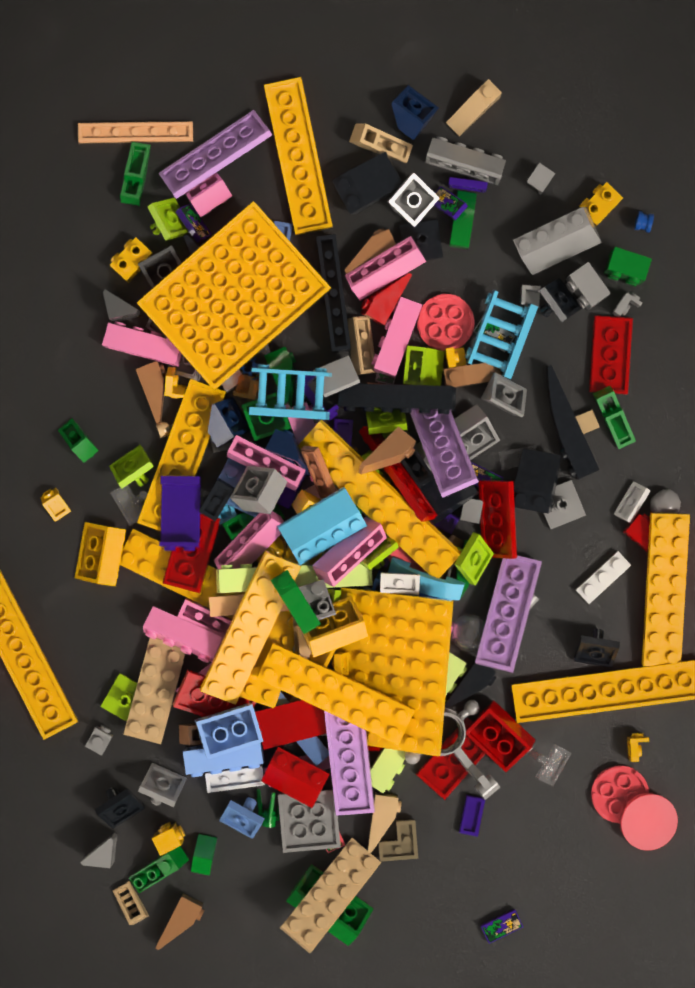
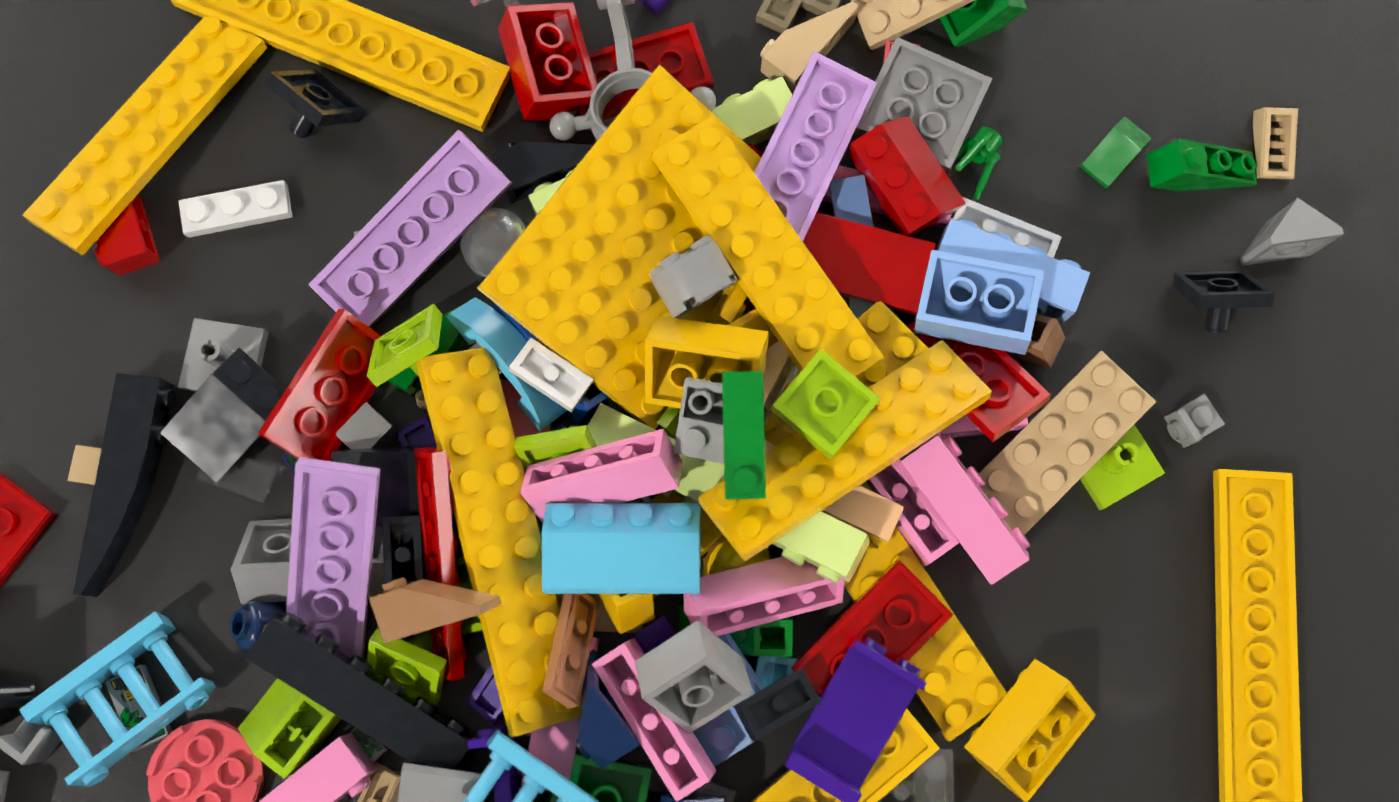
camera: 155 degrees left, 10 degrees down
(162, 785) = (1132, 286): light grey tile -> none
(168, 837) = (1167, 199): yellow brick -> none
(183, 917) = (1208, 72): medium nougat slope -> none
(242, 817) = (1027, 165): medium blue tile -> none
(270, 639) = (825, 404): none -> lime tile
(361, 663) = (692, 277): none -> light grey brick
(455, 357) = (227, 706): yellow bracket -> none
(464, 399) = (251, 620): none -> dark blue head
(469, 375) = (218, 660): medium nougat slope -> none
(505, 395) = (187, 587): light grey slope -> none
(614, 417) = (39, 448): green slope -> none
(632, 502) = (108, 294): white plate -> none
(665, 502) = (61, 266): light grey hair -> none

